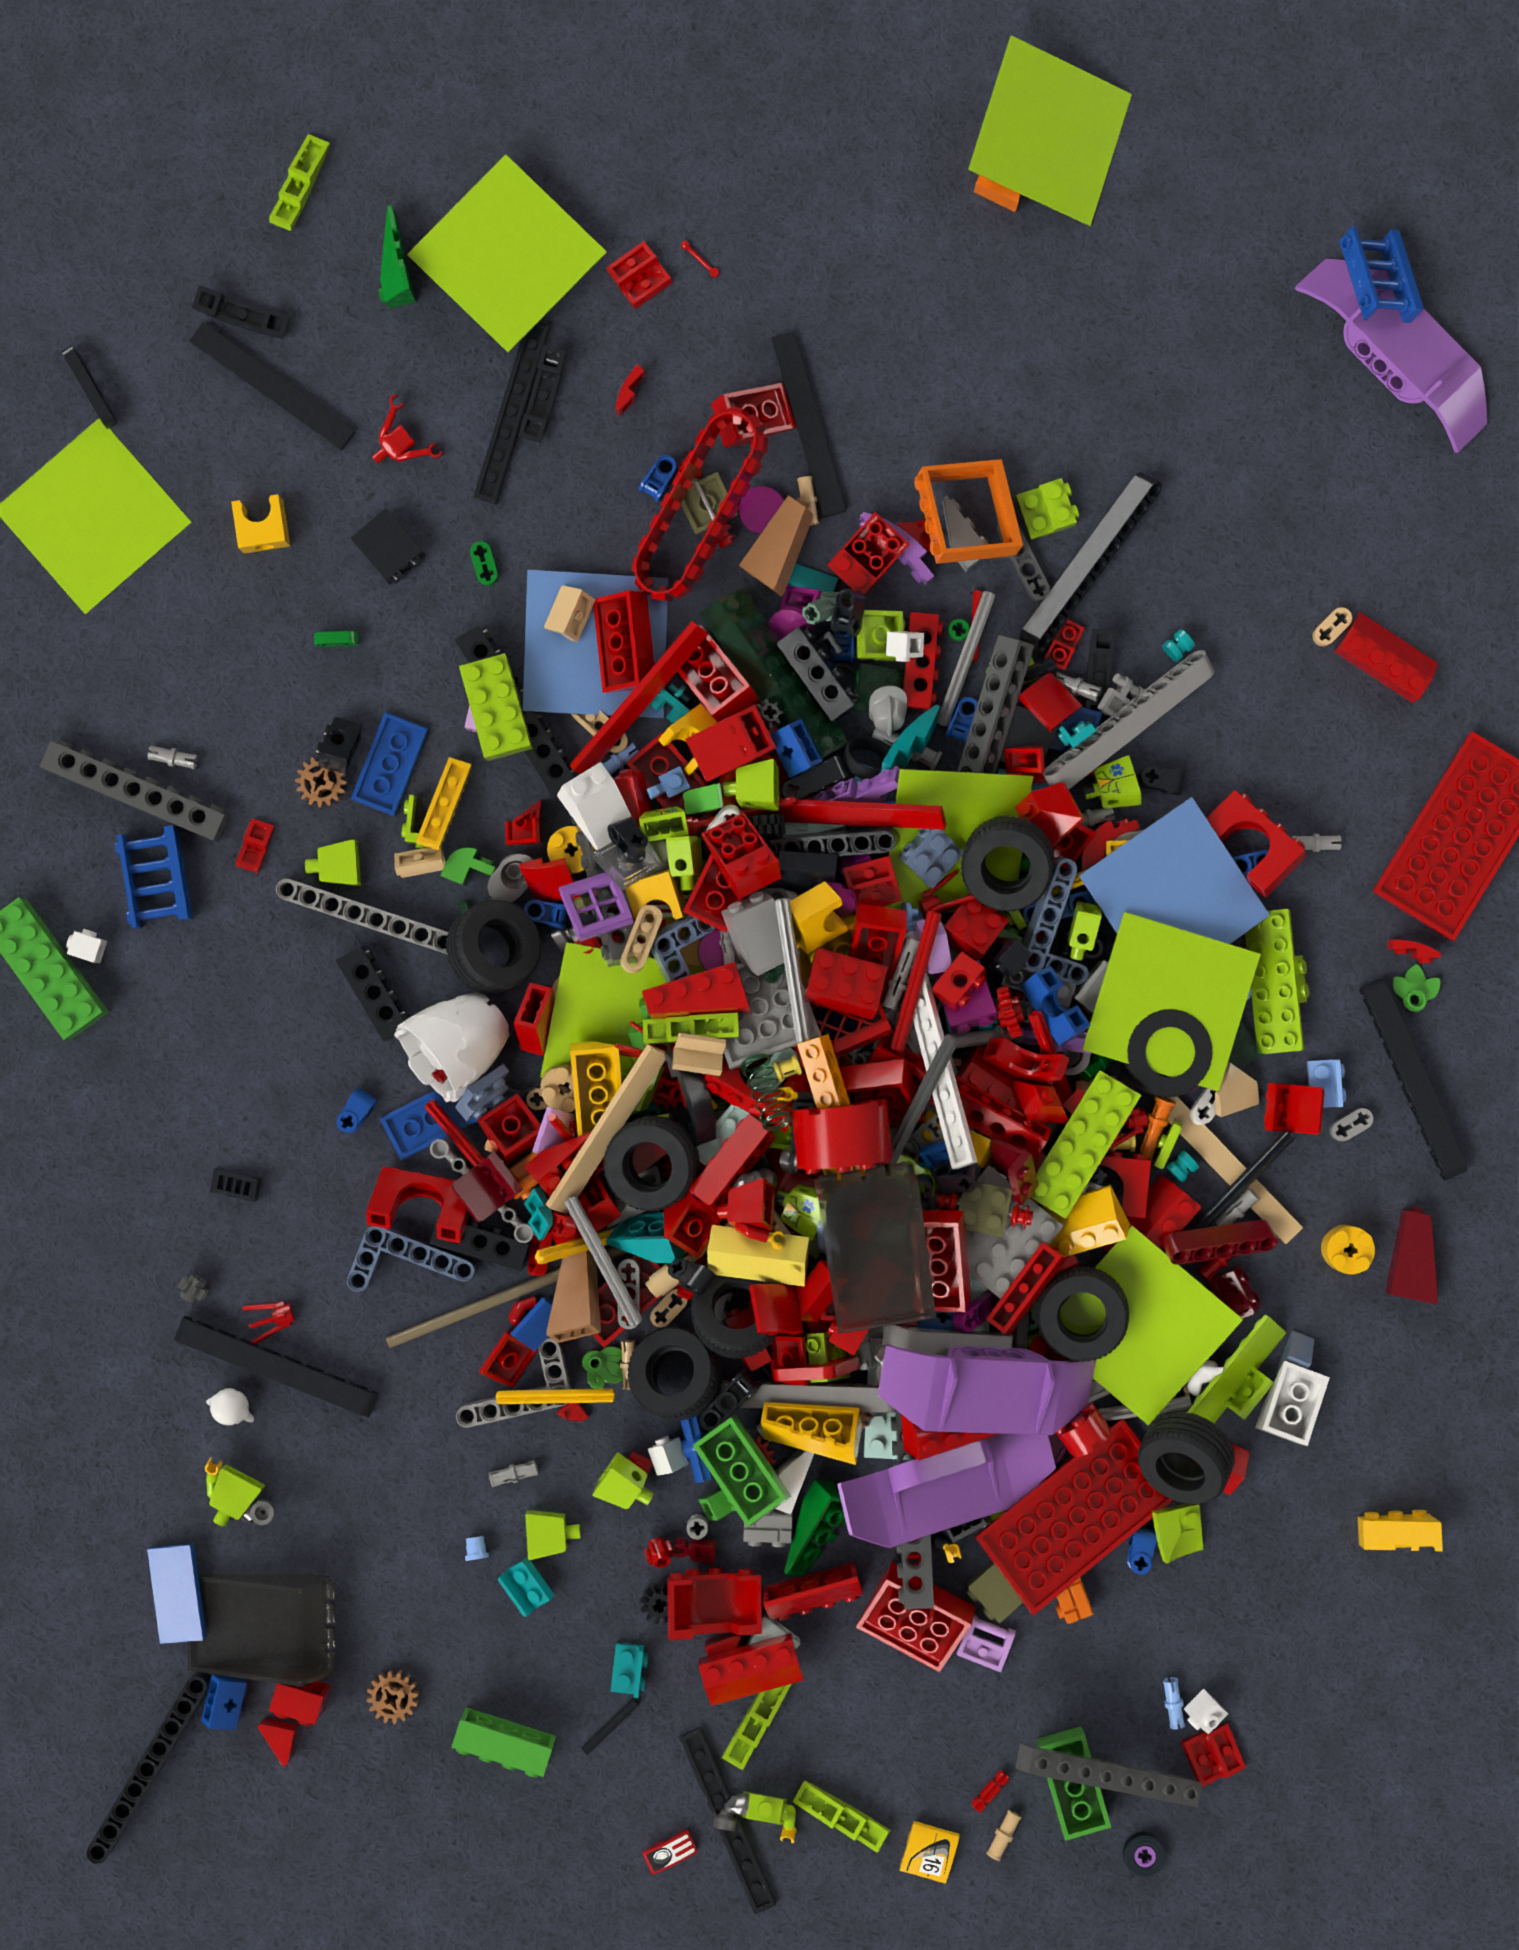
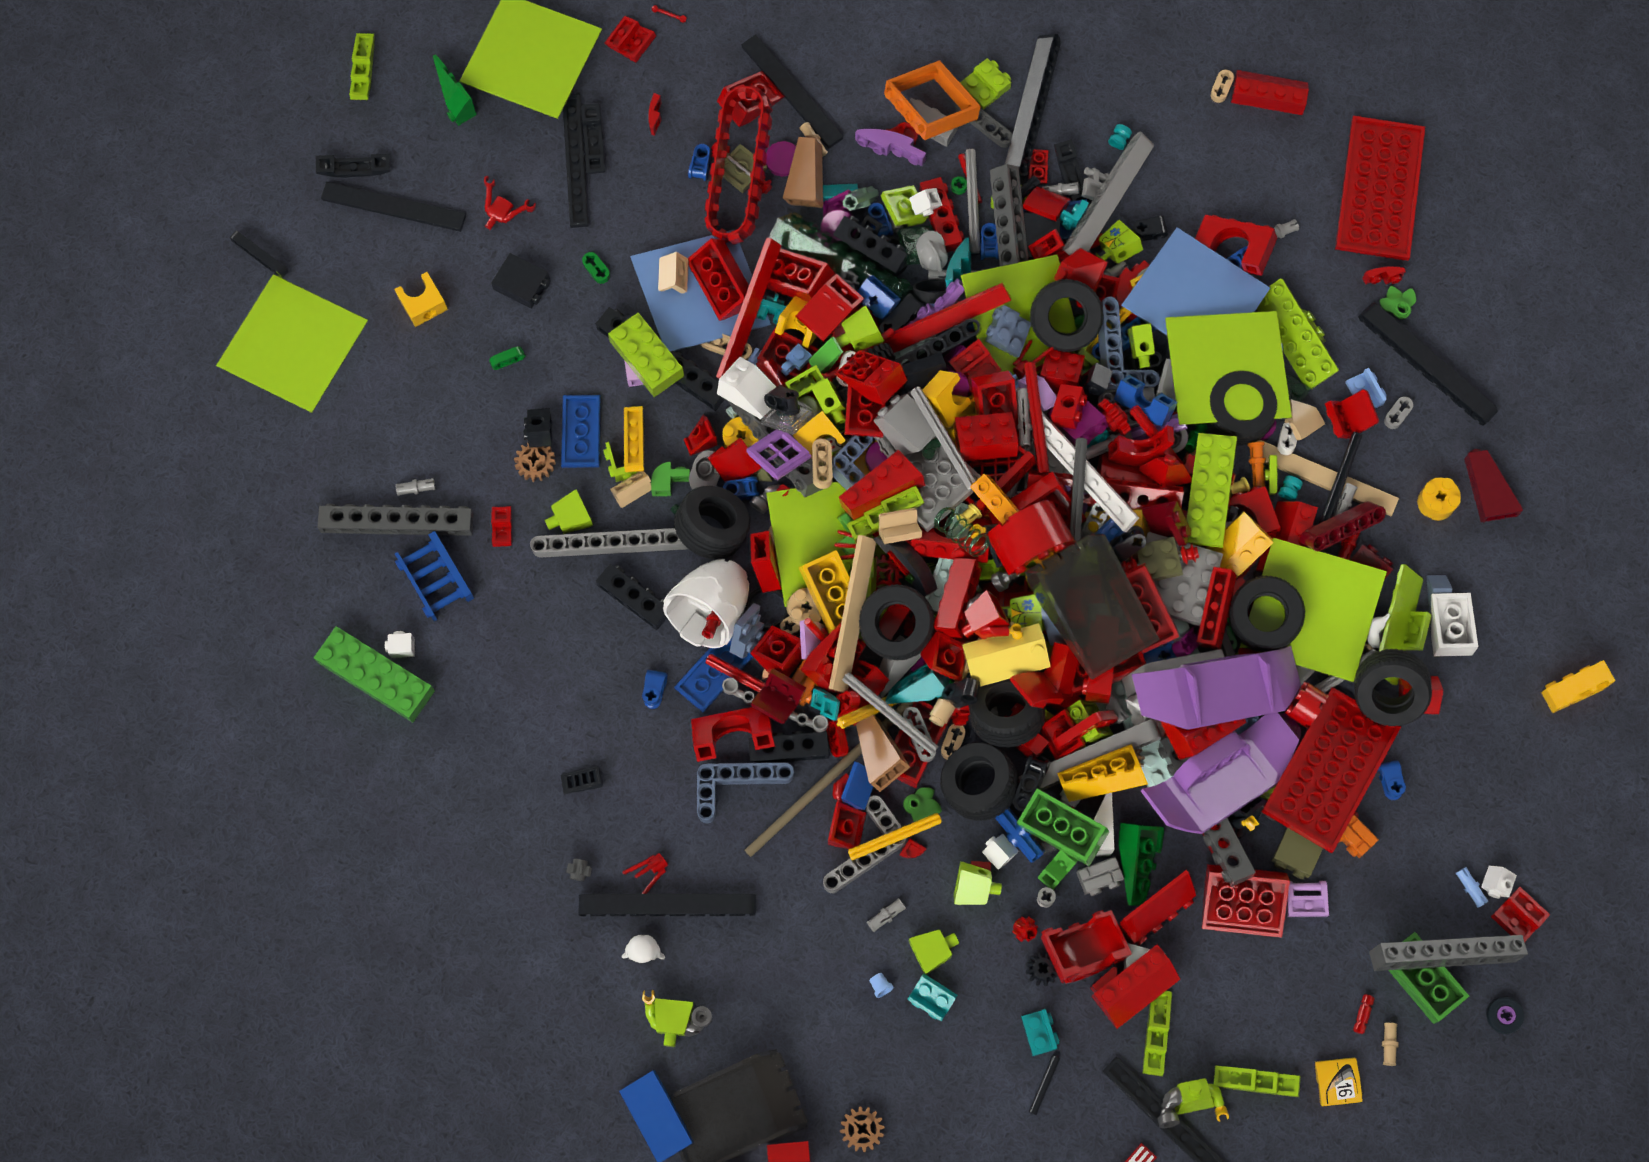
camera: 20 degrees left, 15 degrees down
(503, 1742) = (966, 1125): bright green brick -> none
(627, 1349) = (935, 786): tan pin -> none
(700, 1550) = (1056, 915): dark red plate -> none
(848, 613) = (875, 198): black piece -> none
(868, 554) = (872, 157): red slope -> none
(1136, 1122) = (1241, 468): red plant -> none
(1178, 1531) = (1413, 752): lime plate -> none

